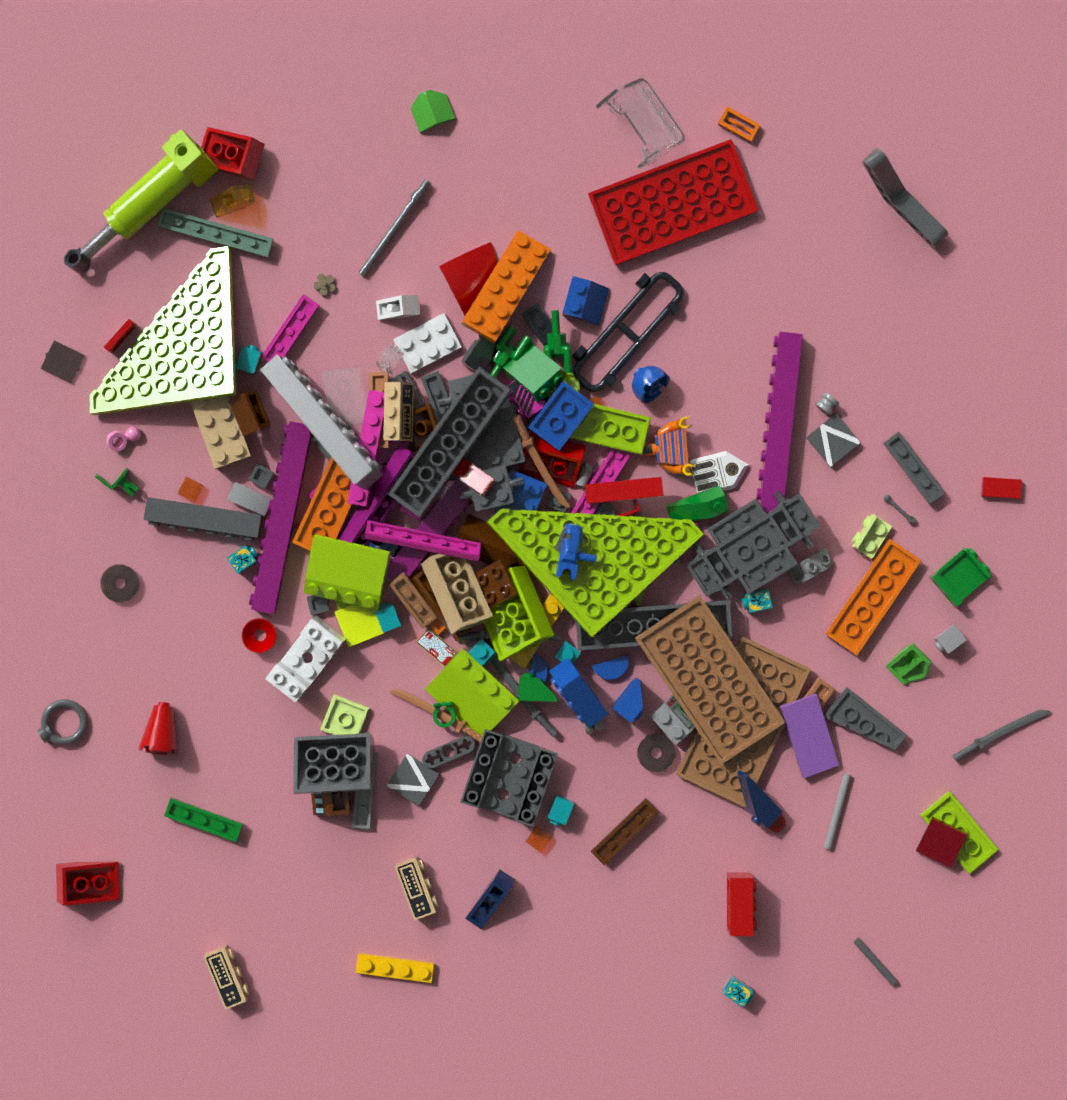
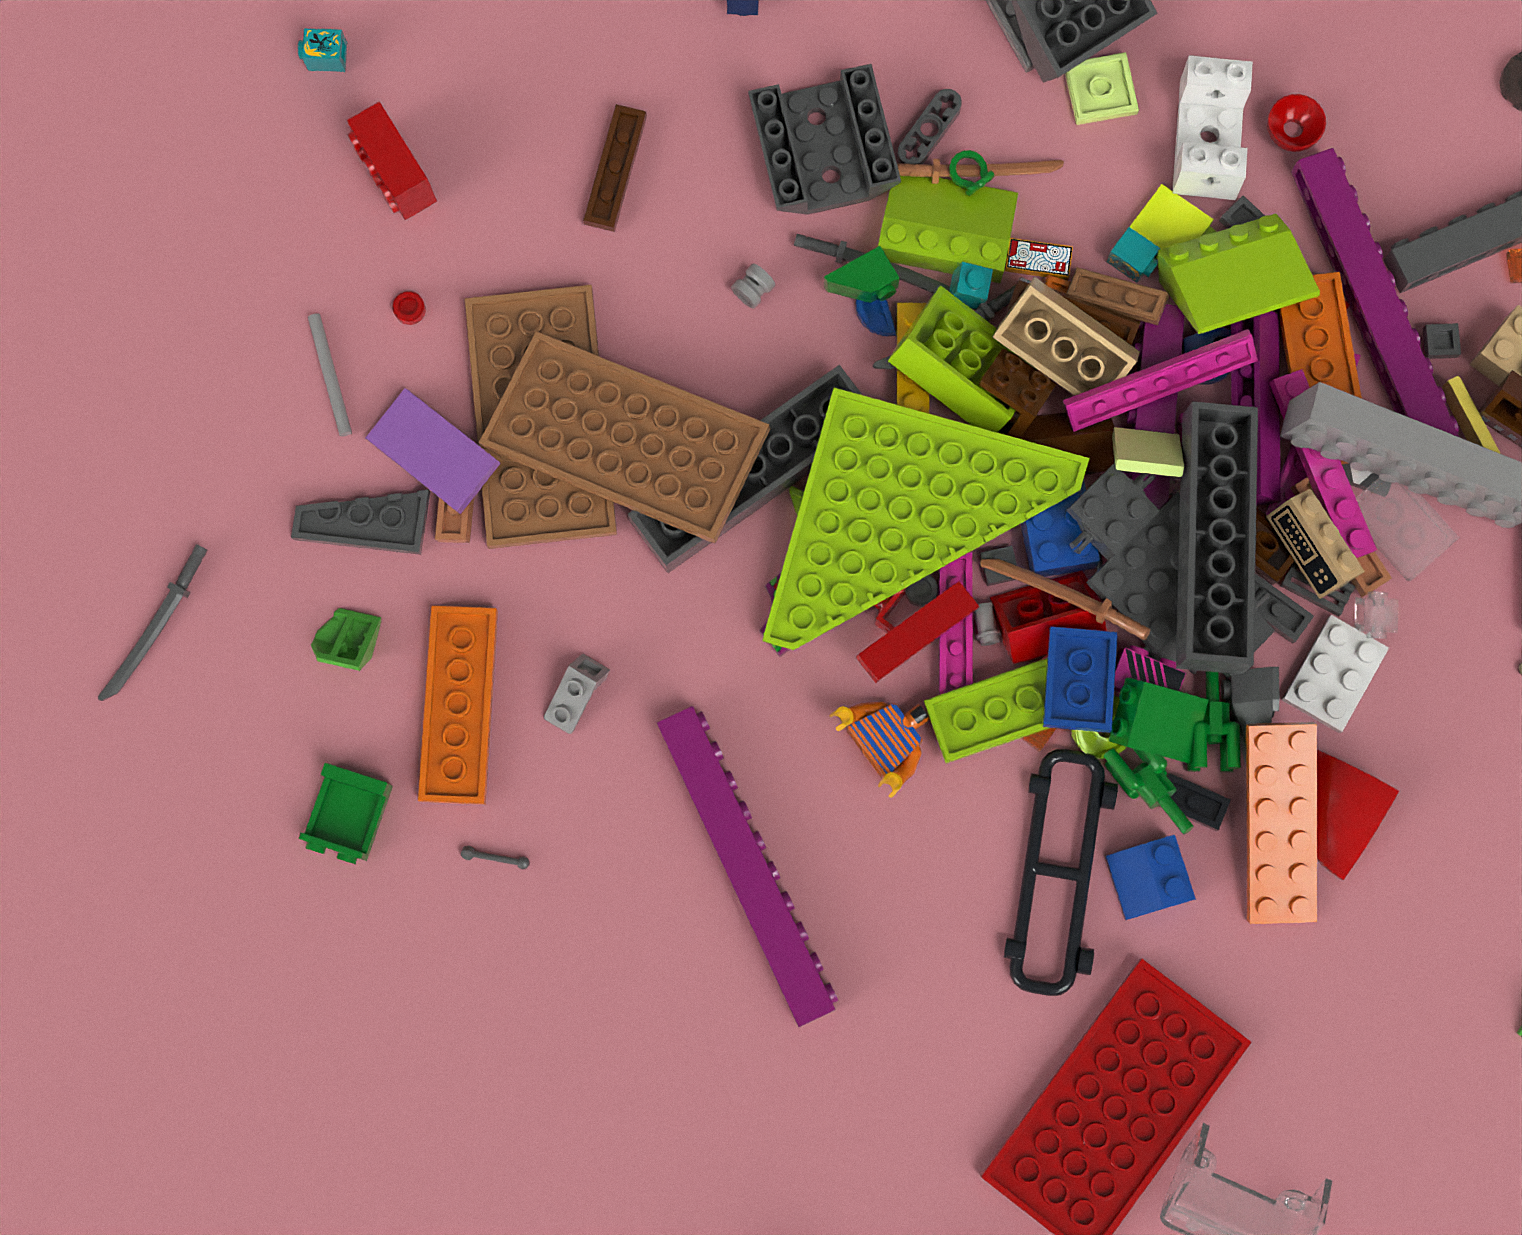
camera: 155 degrees right, 10 degrees down
(243, 558) = (1389, 212): teal brick -> none
(249, 498) = (1436, 300): light grey slope -> none
(275, 424) = (1467, 414): none -> light yellow tile
(398, 307) = (1412, 698): white slope -> none
(412, 779) = (954, 63): dark grey tile -> none
(416, 197) = (1495, 877): dark grey bar -> none
(454, 507) = (1147, 452): none -> yellowish green tile
(474, 477) = (1149, 508): tile -> none
(538, 839) = (729, 89): clear orange tile -> none
(560, 810) = (723, 141): teal brick -> none
(567, 651) = (851, 355): teal brick -> none
(569, 550) = (944, 488): blue piece -> none
(577, 693) = (802, 304): blue brick -> none
(613, 668) = (773, 378): blue tile -> none
(630, 701) = (718, 339): blue slope -> none
(644, 752) = (638, 282): clear smoke tile -> none
(648, 382) = (980, 812): blue cylinder -> none
(672, 719) = (644, 350): light grey slope -> none
(700, 506) = (791, 680): green slope -> none
(717, 470) = (796, 746): white tile -> none
(753, 545) = (679, 668): dark grey piece -> none
(757, 600) = (624, 595): teal brick -> none
(757, 802) = (444, 311): dark blue slope -> none
(827, 403) = (697, 946): light grey wheel -> none
(833, 440) = (655, 899): dark grey tile -> none
(871, 536) = (513, 792): yellowish green bracket -> none
(875, 961) = (154, 204): dark grey bar -> none
(913, 468) = (510, 931): dark grey plate -> none
(941, 842) = (152, 418): dark red tile -> none
(949, 639) = (309, 710): light grey brick -> none
(977, 845) = (135, 449): lime tile -> none
(1001, 487) = (361, 983): red tile -> none

